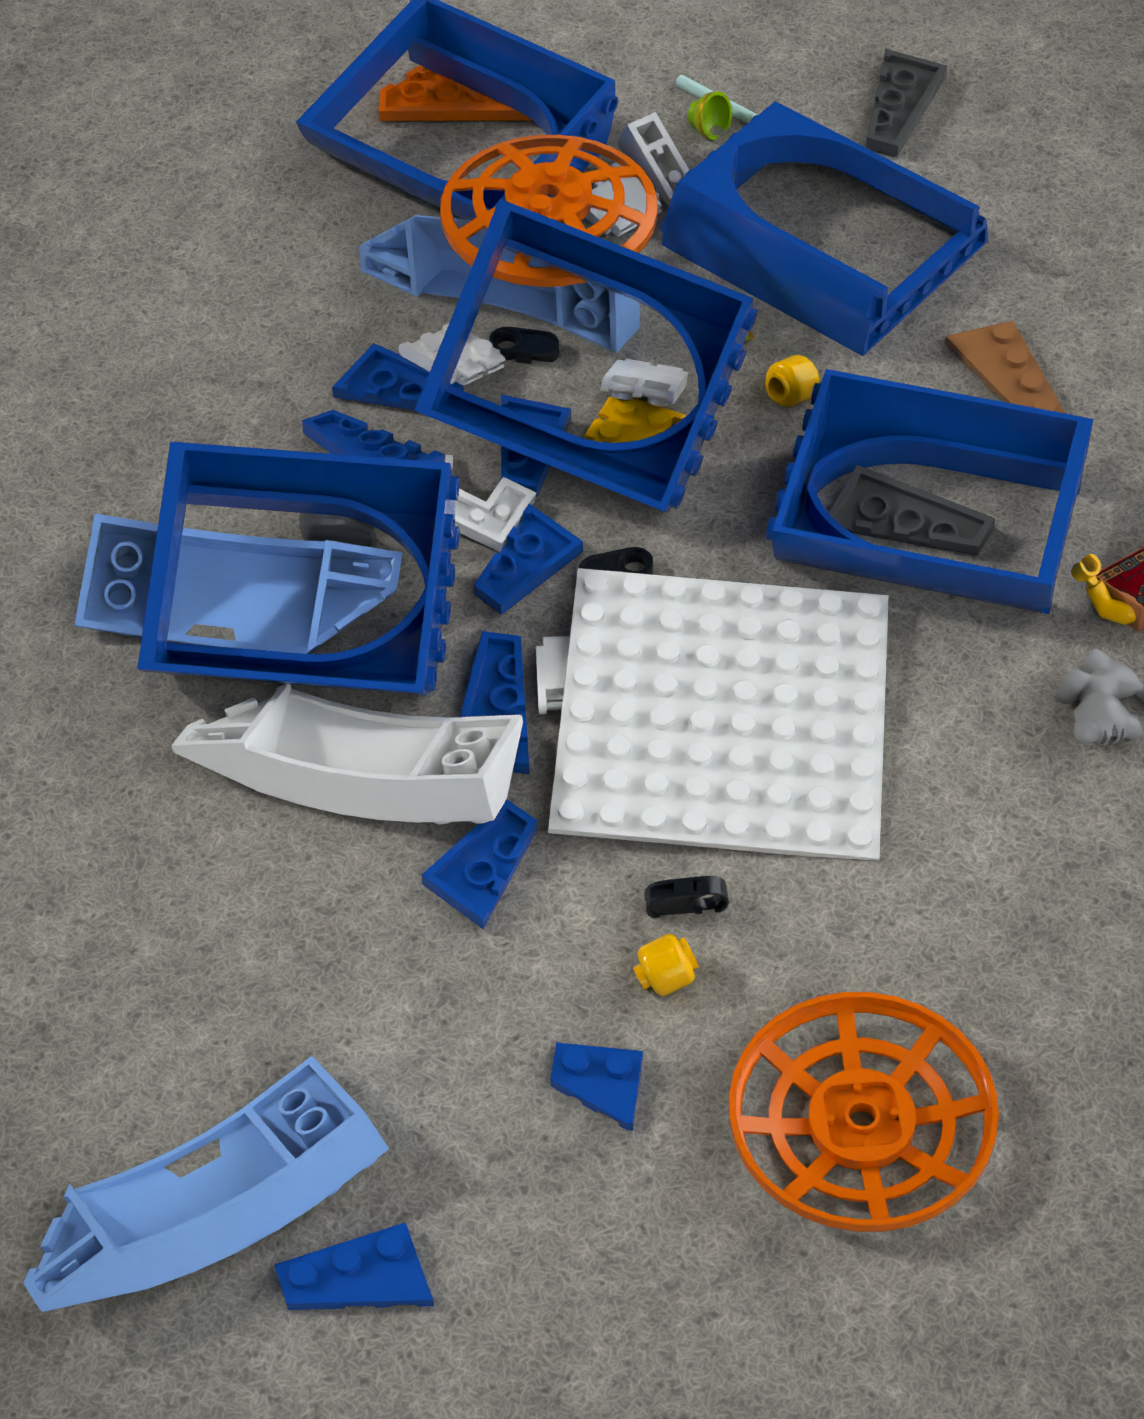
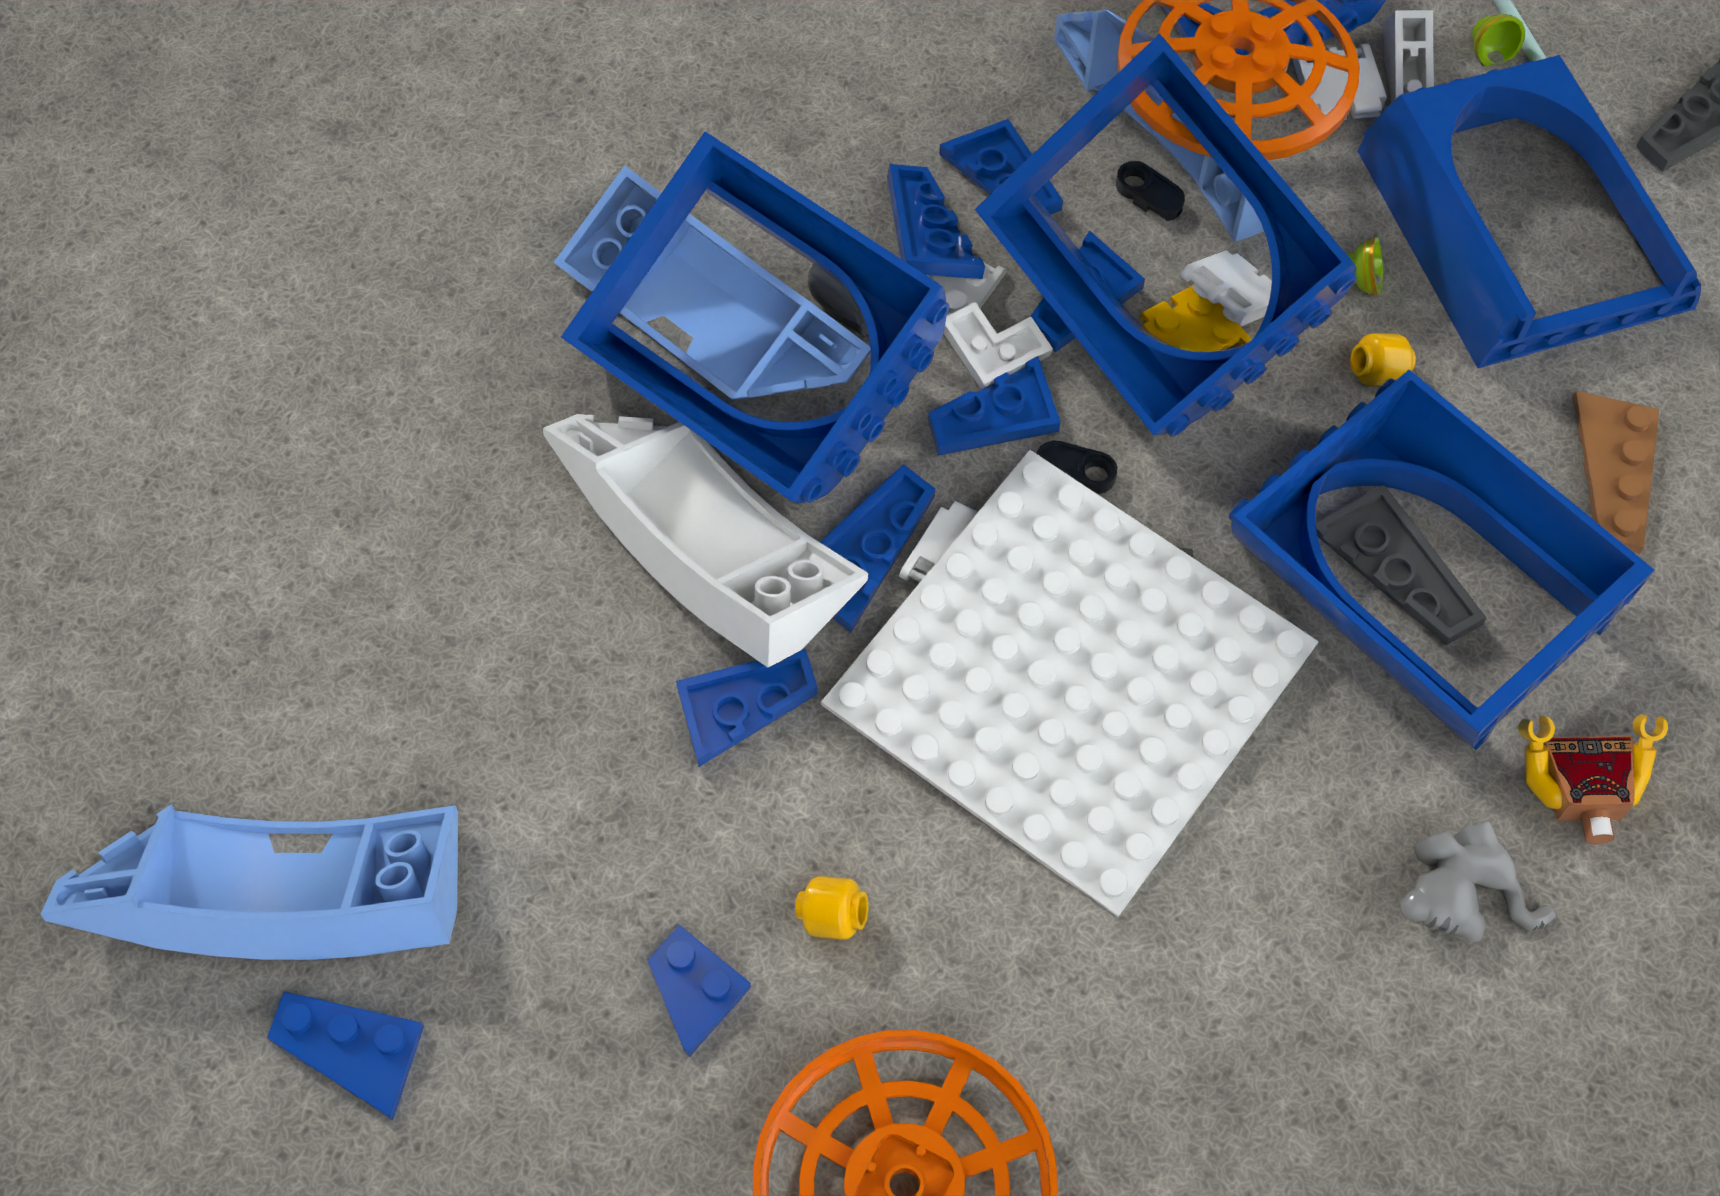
camera: 30 degrees right, 10 degrees up
(476, 356) = (1086, 175): white plate -> none
(685, 896) = (901, 847): black piece -> none

